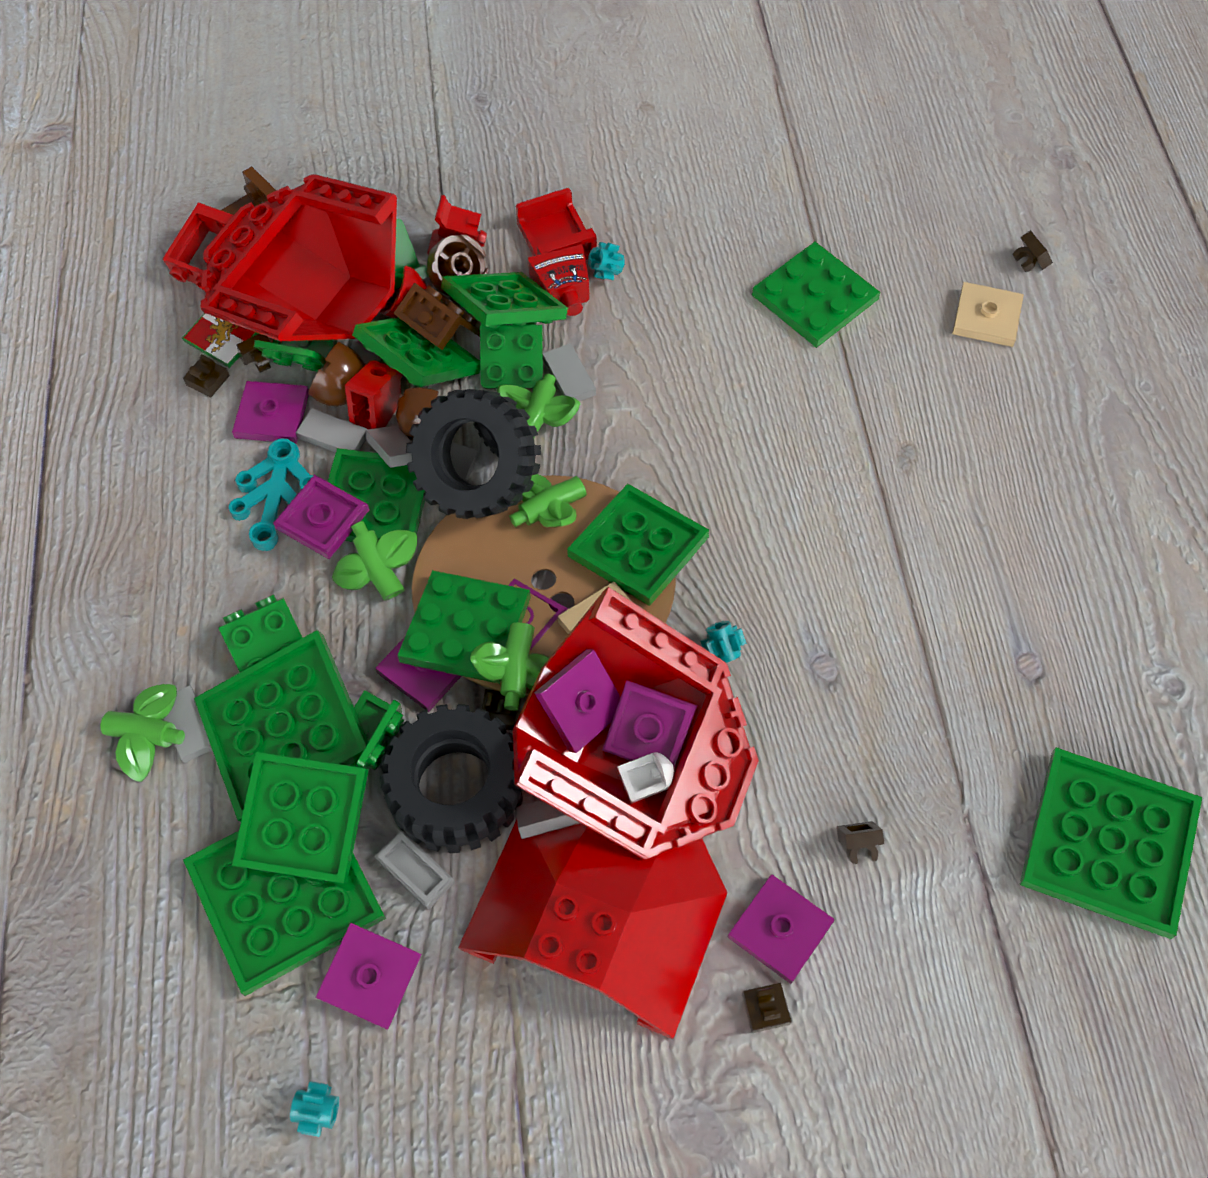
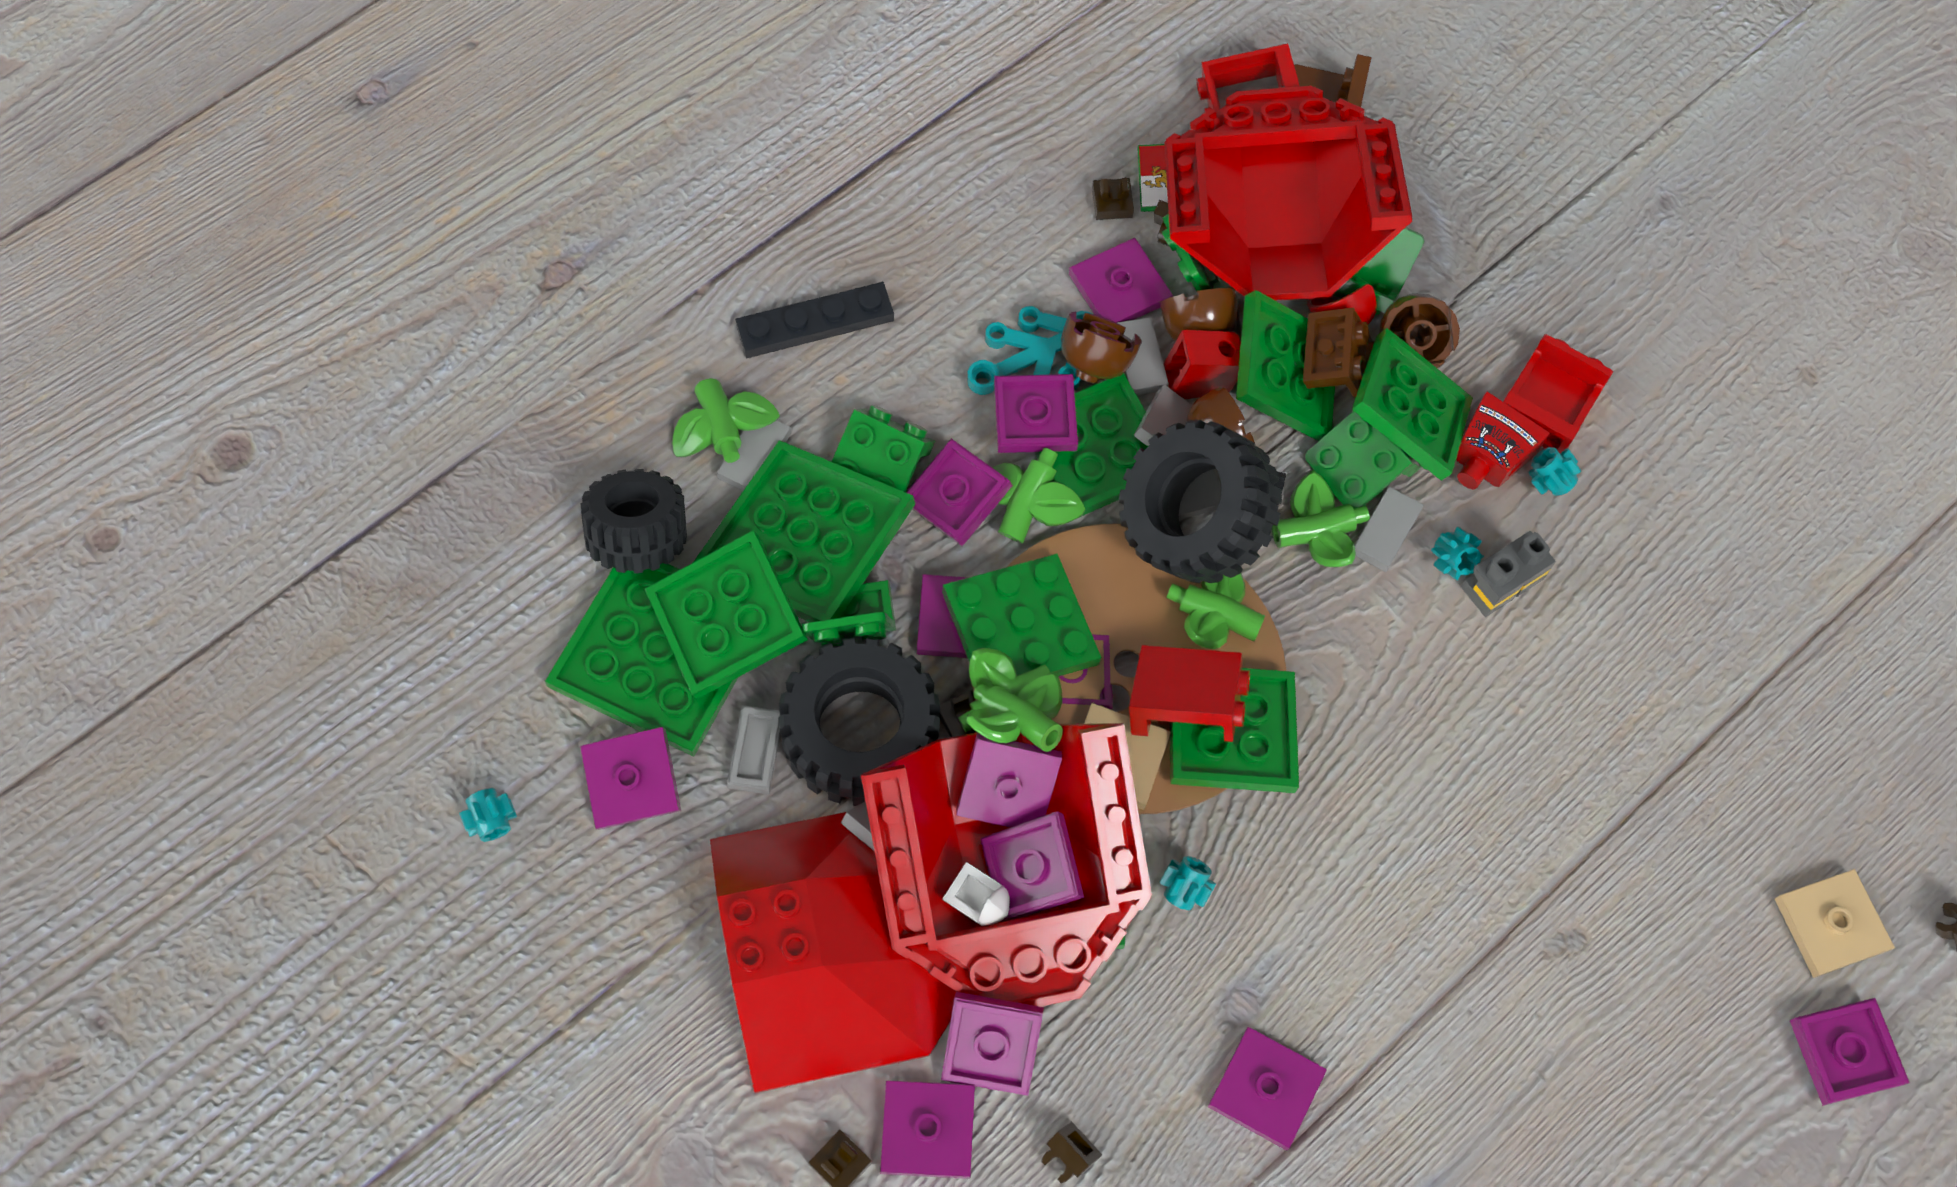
camera: 50 degrees right, 5 degrees up
(121, 618) = (814, 319): none -> black plate
(170, 839) = (634, 520): none -> black tyre
(308, 448) = (1097, 347): none -> reddish brown cylinder
(335, 603) = (957, 492): none -> magenta plate
(456, 222) = (1467, 296): red piece -> none
(539, 656) = (1028, 713): none -> bright green plant
(597, 546) = (1188, 688): none -> red panel
(618, 345) = (1457, 553): none -> teal gear
(653, 325) = (1509, 573): none -> dark grey hips
(751, 841) = (992, 1043): none -> magenta plate
(815, 294) = (1702, 716): green plate -> none
(891, 687) = (1267, 1088): none -> magenta plate
(1070, 357) = (1849, 1051): none -> magenta plate

